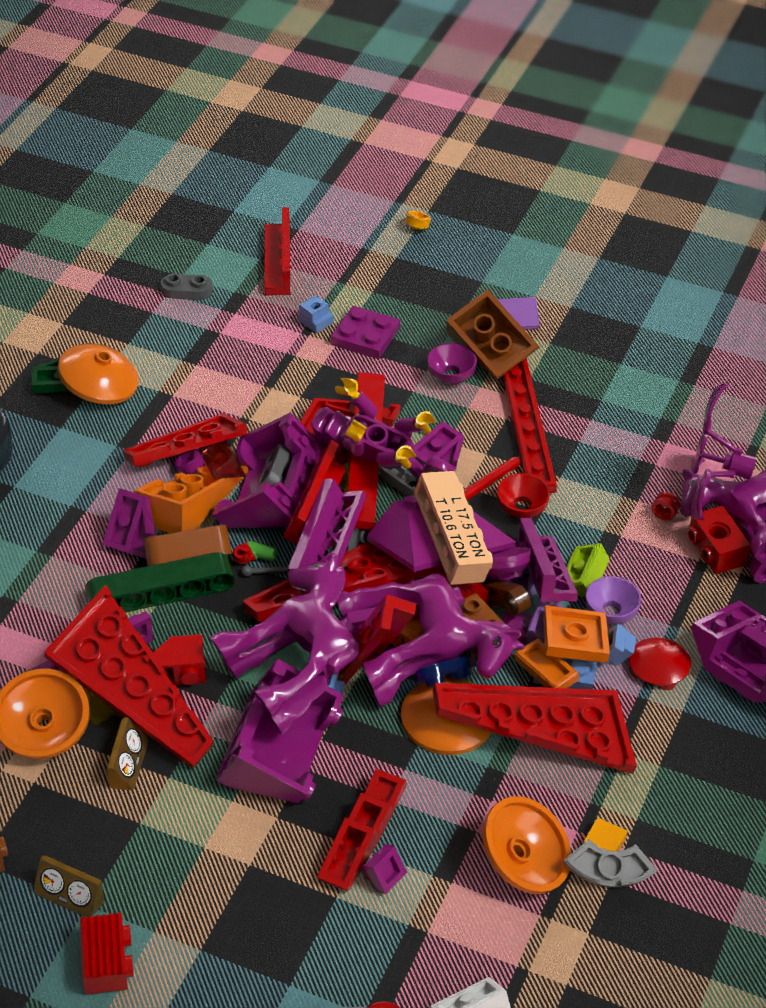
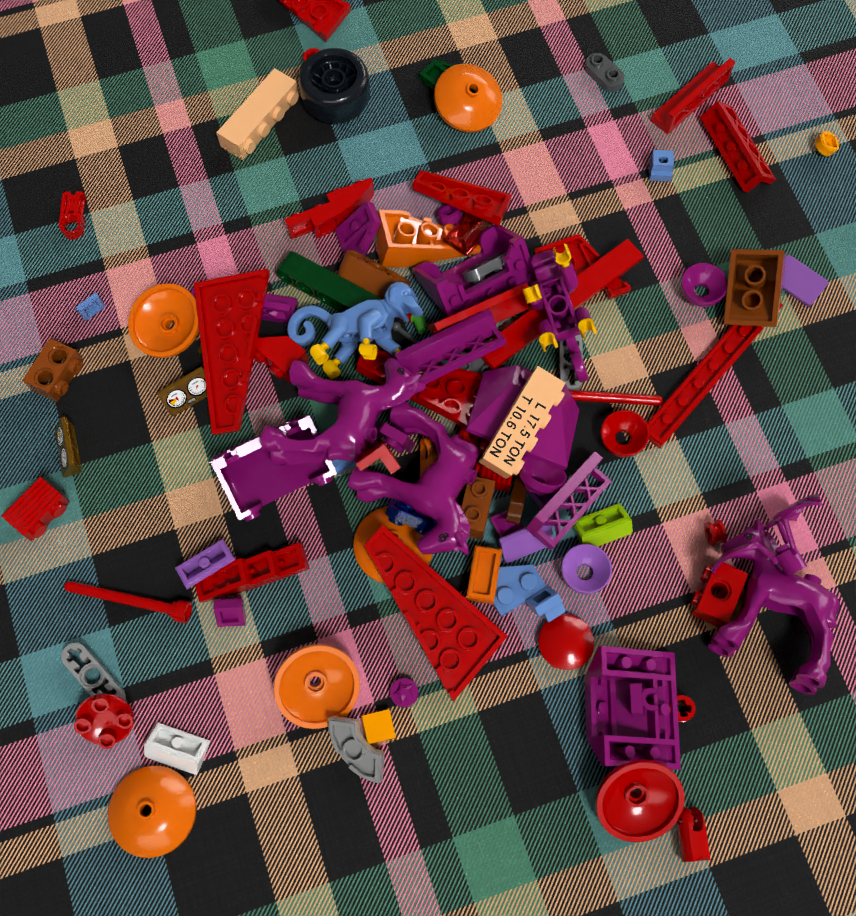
camera: 50 degrees right, 25 degrees up
(85, 533) = (327, 217): none -> red slope
(227, 575) = (360, 323): none -> medium blue animal
(318, 853) = (204, 564): none -> medium lavender slope
(339, 910) = (179, 611): none -> red piece
(355, 265) = (736, 146): none -> red fence
(365, 332) = (680, 208): magenta plate -> none
(442, 443) = (613, 348): magenta wing -> none
(576, 634) = (523, 573): orange plate -> none
(592, 800) = (404, 693): none -> magenta tile

